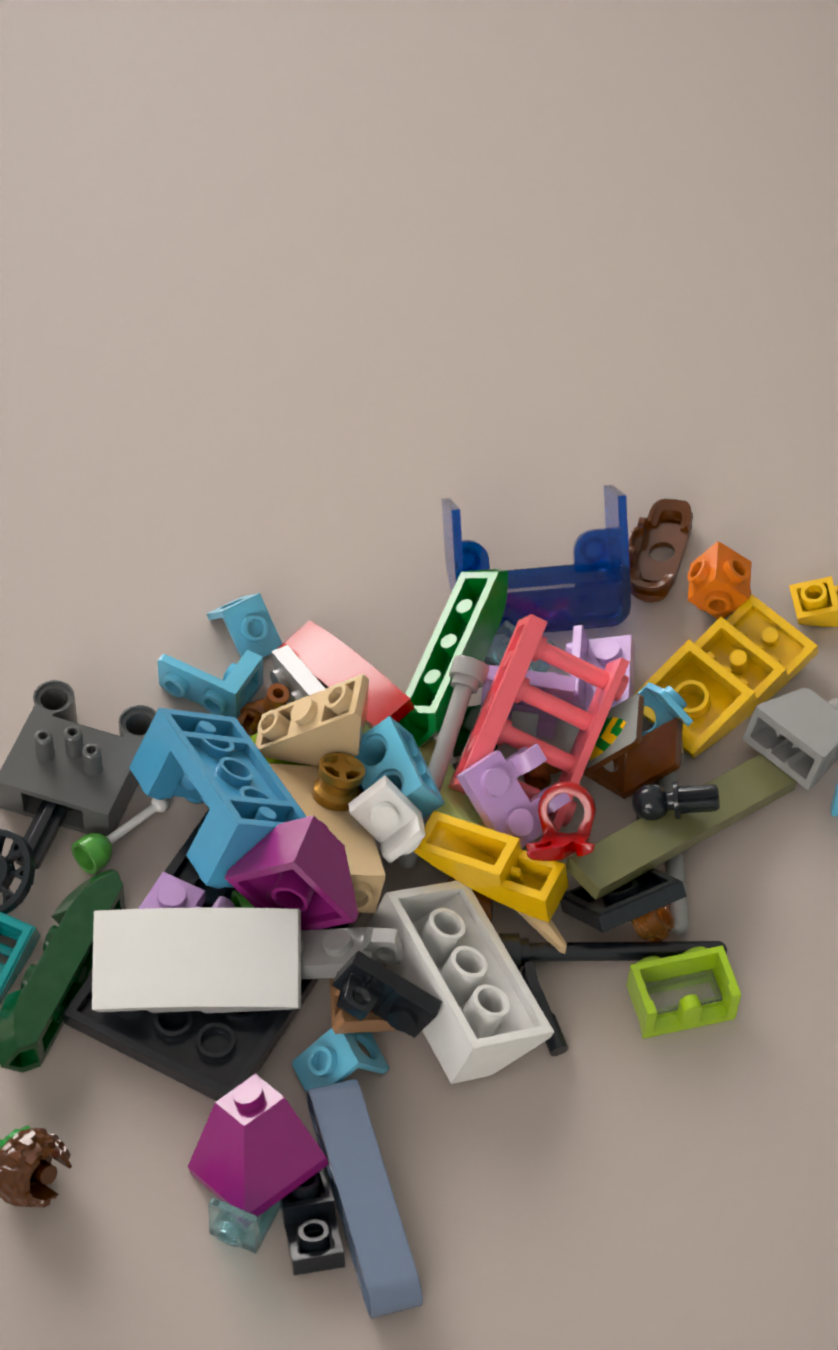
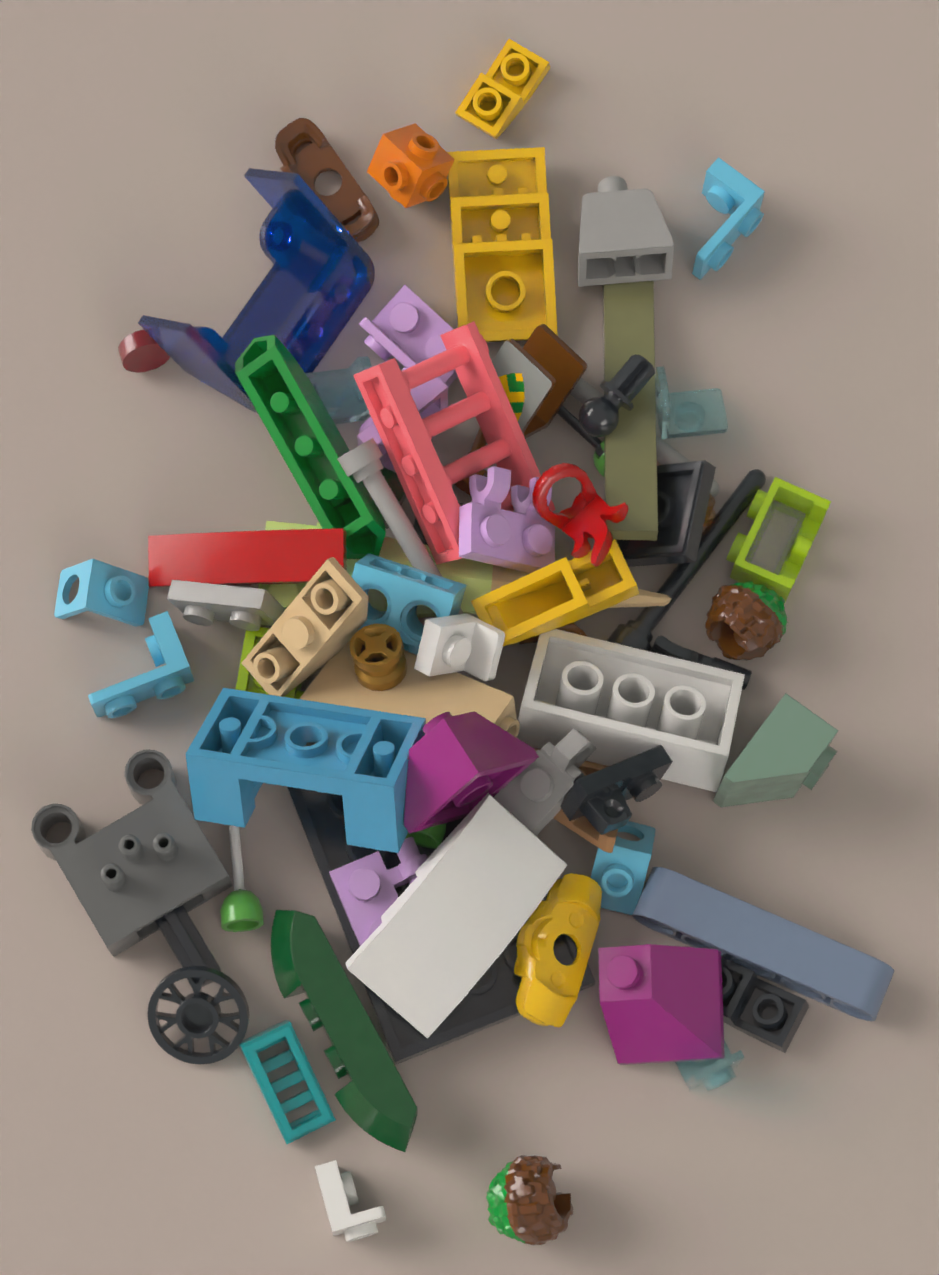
camera: 50 degrees left, 20 degrees up
(200, 1064) = (546, 984): none -> yellow piece
(251, 712) = (215, 652): dark orange arm -> none
(430, 532) = (141, 352): none -> dark red tile
(506, 1092) = (780, 758): none -> sand green slope
(599, 1009) = (746, 620): none -> reddish brown piece
(665, 704) = (506, 322): medium azure bracket -> none
(716, 866) = (688, 411): none -> clear light blue bracket

